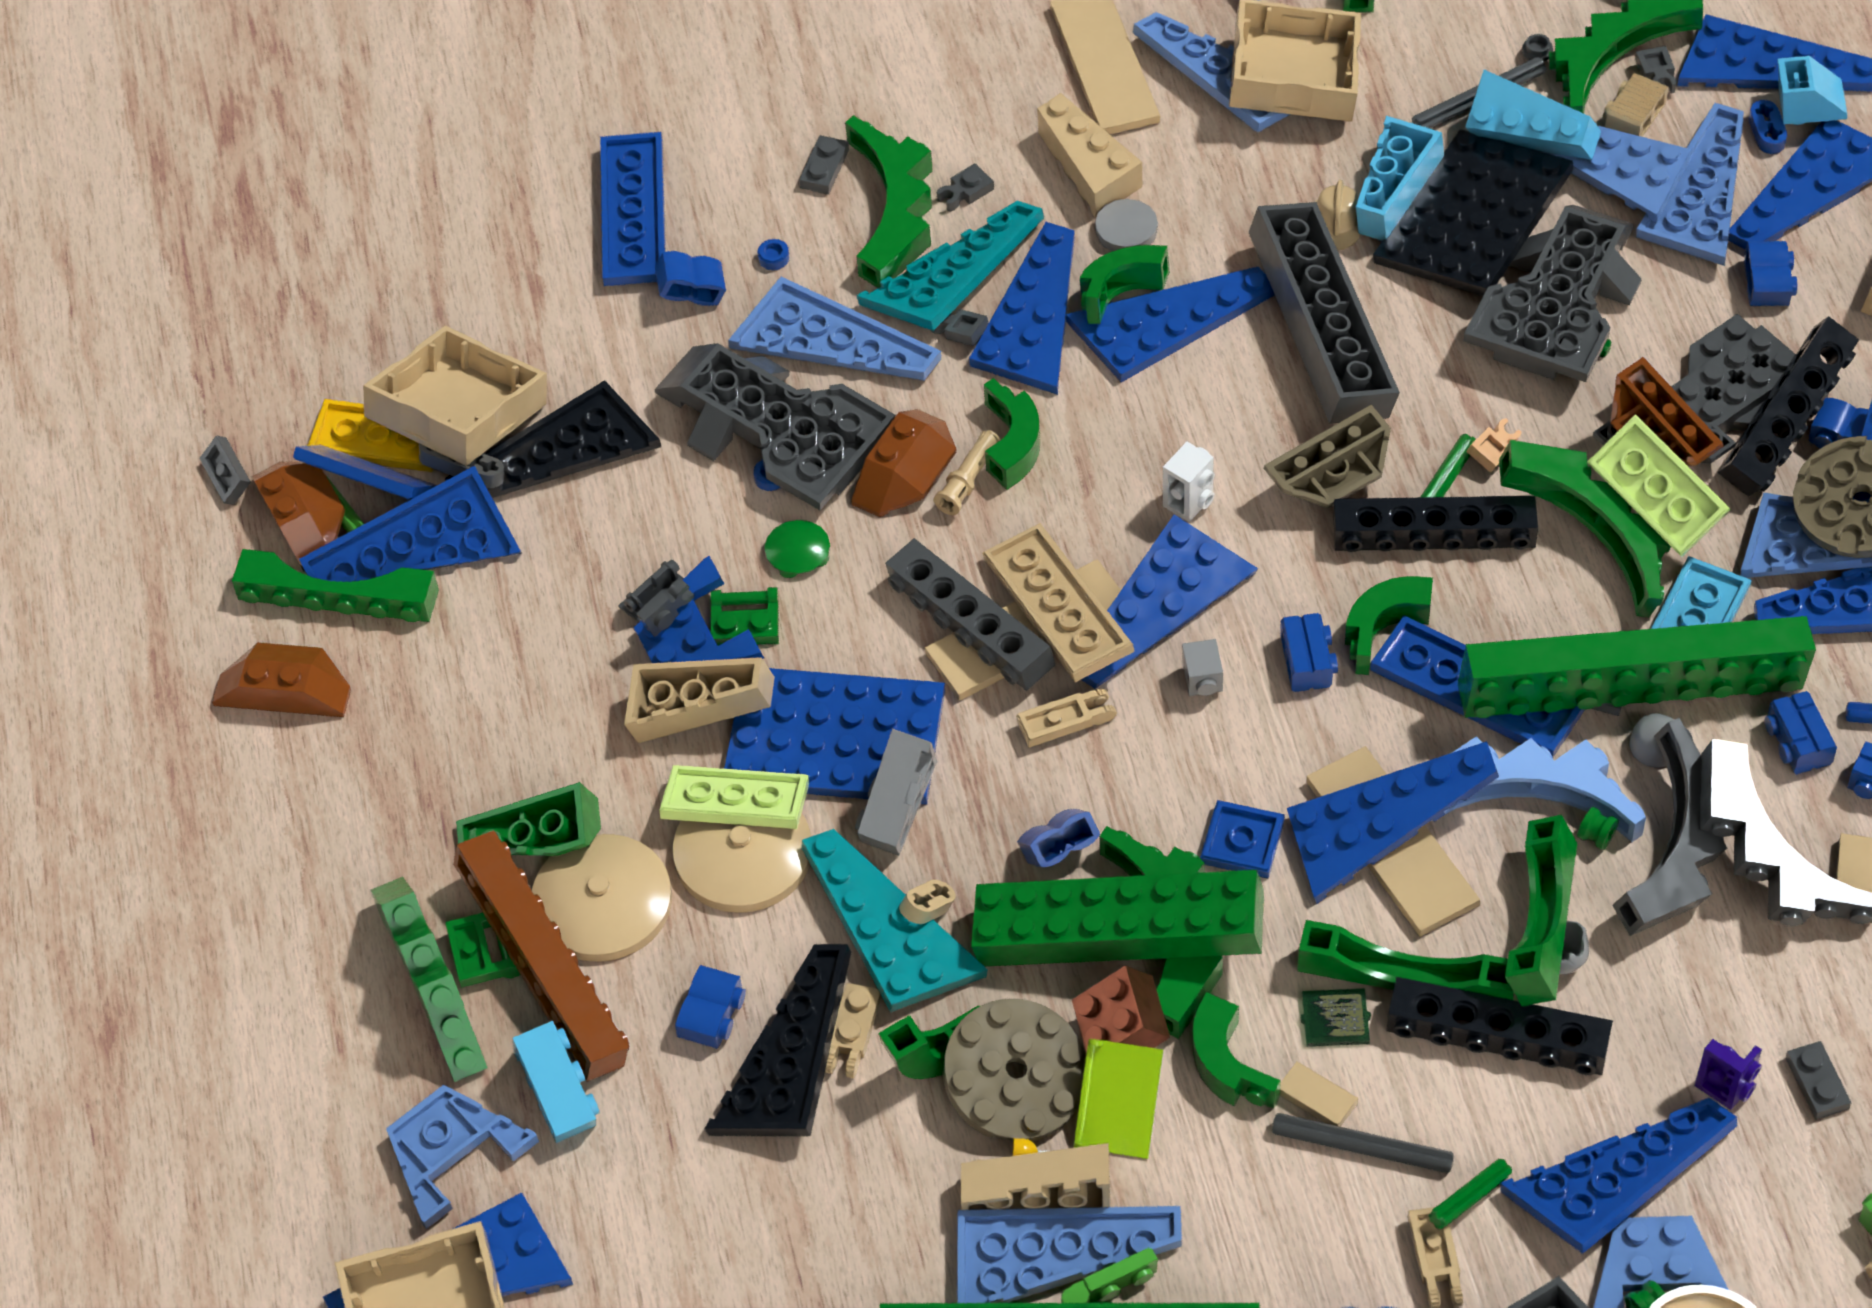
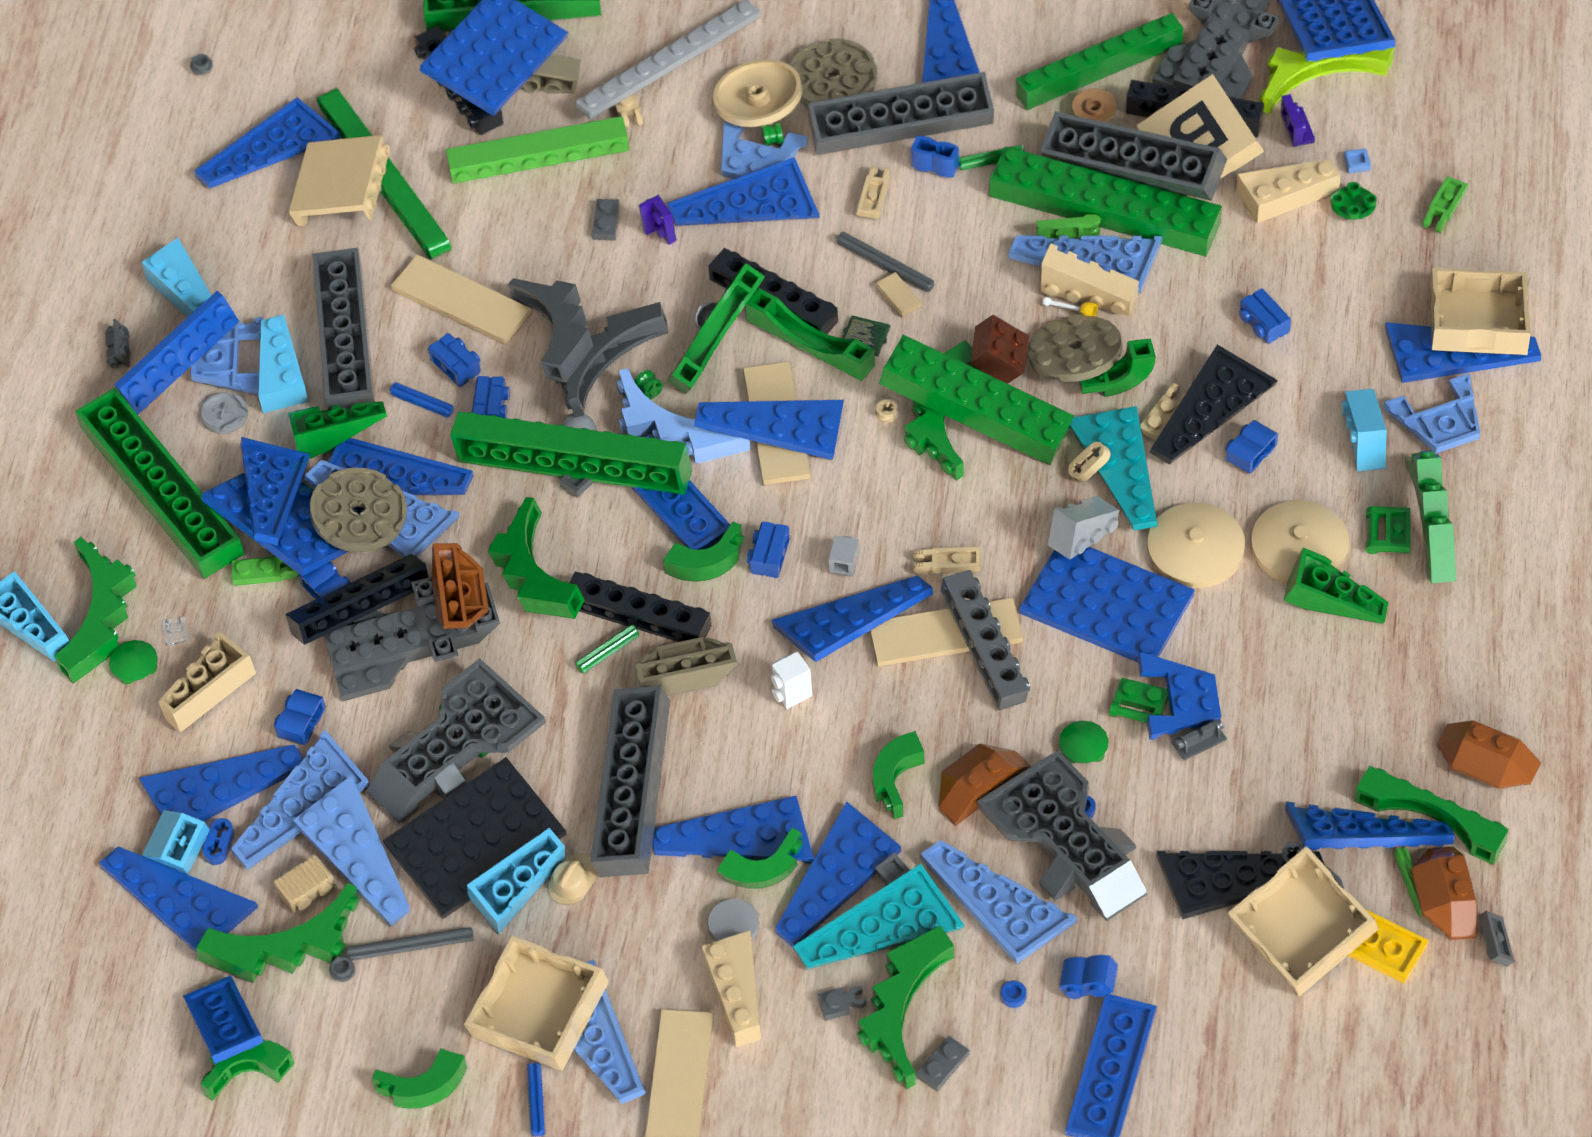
camera: 160 degrees left, 0 degrees up
(362, 470) = (1388, 885): blue tile -> none
(540, 954) = (1353, 502): dark orange brick -> none
(662, 609) = (1201, 696): dark grey plate -> none
(694, 694) = (1194, 634): tan wedge -> none
(734, 797) = (1191, 564): yellowish green tile -> none
(755, 1224) = (1264, 316): none -> blue brick
(961, 481) = (948, 748): tan pin -> none
(1058, 602) = (920, 629): tan tile -> none
(1064, 833) = (989, 474): blue brick -> none
(1118, 1097) = (1020, 311): lime piece -> none
(1217, 1066) = (948, 314): green arch -> none
(1242, 838) = (869, 453): blue tile -> none
(1470, 1193) = (839, 210): green axle -> none
(1491, 444) = (566, 652): light nougat plate -> none
(1530, 119) = (395, 876): medium azure wedge -> none
(1657, 66) = (266, 918): dark grey plate -> none
(1658, 485) = (486, 551): yellowish green tile -> none
(1703, 596) = (495, 505): medium azure tile -> none

